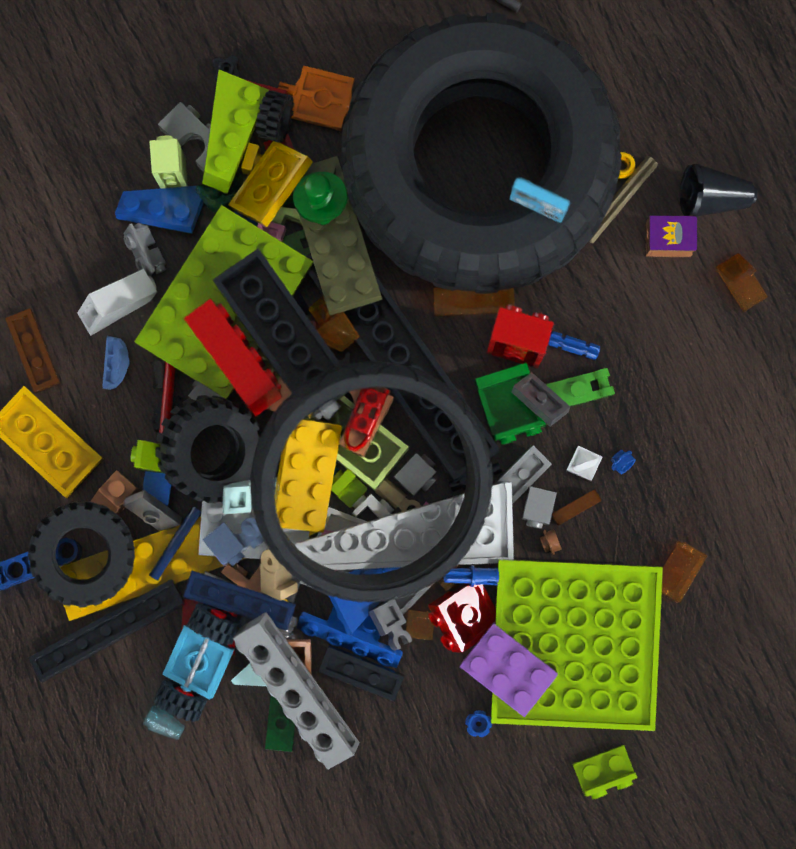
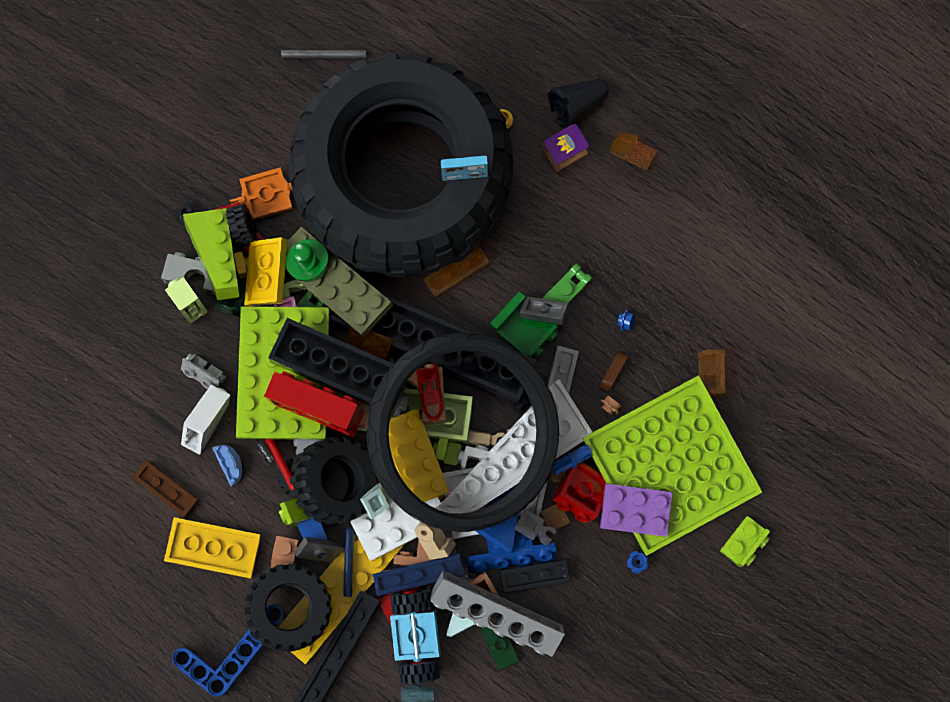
camera: 30 degrees left, 5 degrees down
(164, 208) = (199, 334): blue wing -> none
(229, 546) = (389, 540): sand blue brick -> none
(416, 474) = (489, 414): light grey brick -> none
(520, 336) = (504, 274): red brick -> none
(538, 507) = (587, 386): light grey brick -> none
(574, 345) = (544, 261): blue axle -> none
(584, 463) = (601, 338): white tile -> none
(626, 192) = (516, 134): dark tan axle -> none

